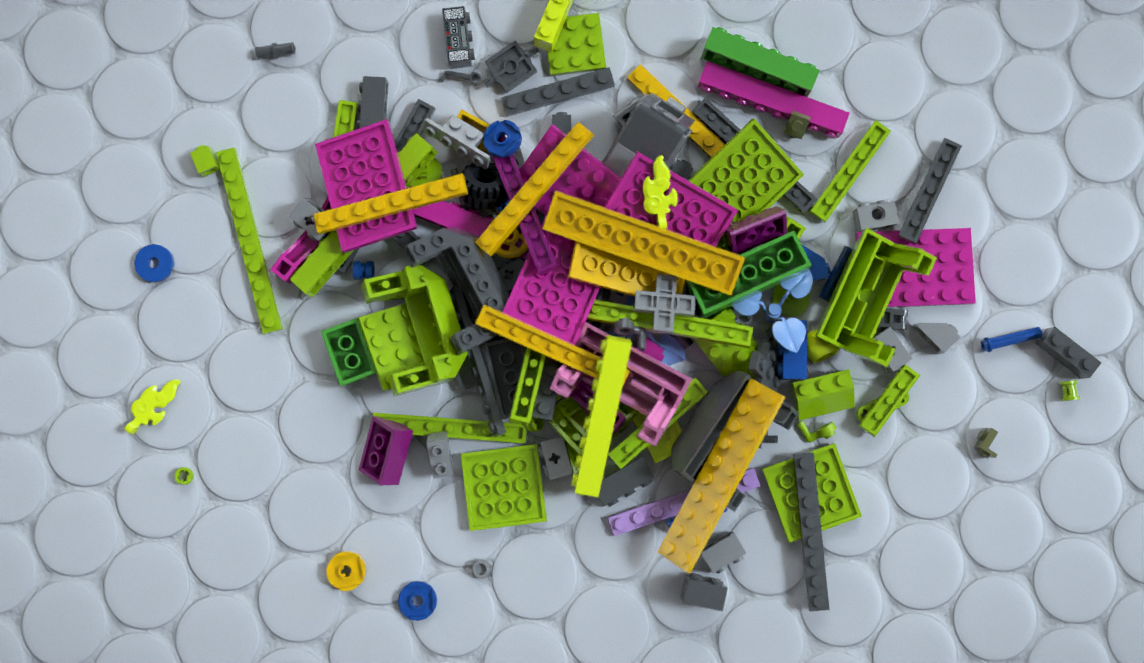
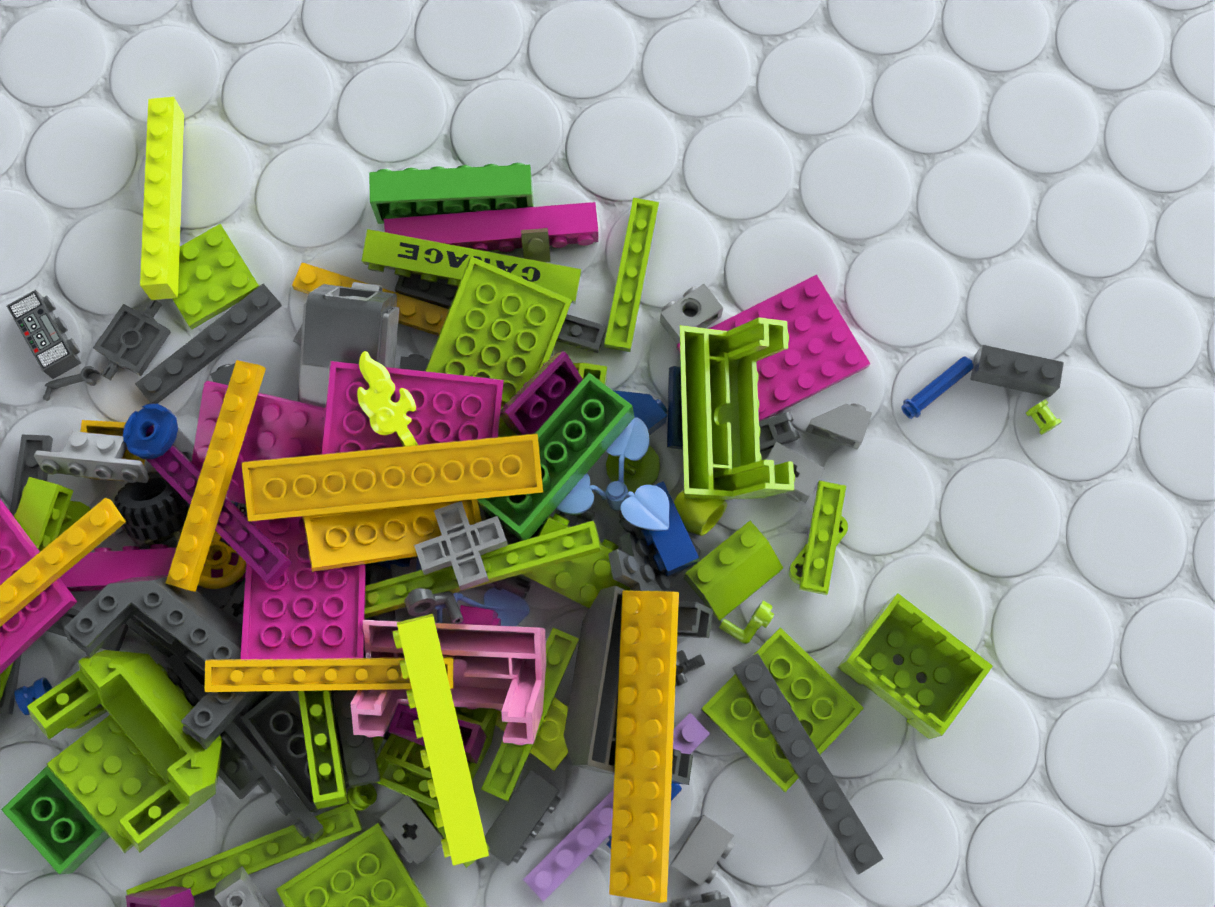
camera: 25 degrees left, 10 degrees down
(740, 113) = (449, 262): none -> lime brick
(927, 515) = (926, 647): none -> lime container
(929, 191) = (742, 253): dark grey plate -> none
(984, 441) = (971, 529): olive bracket -> none

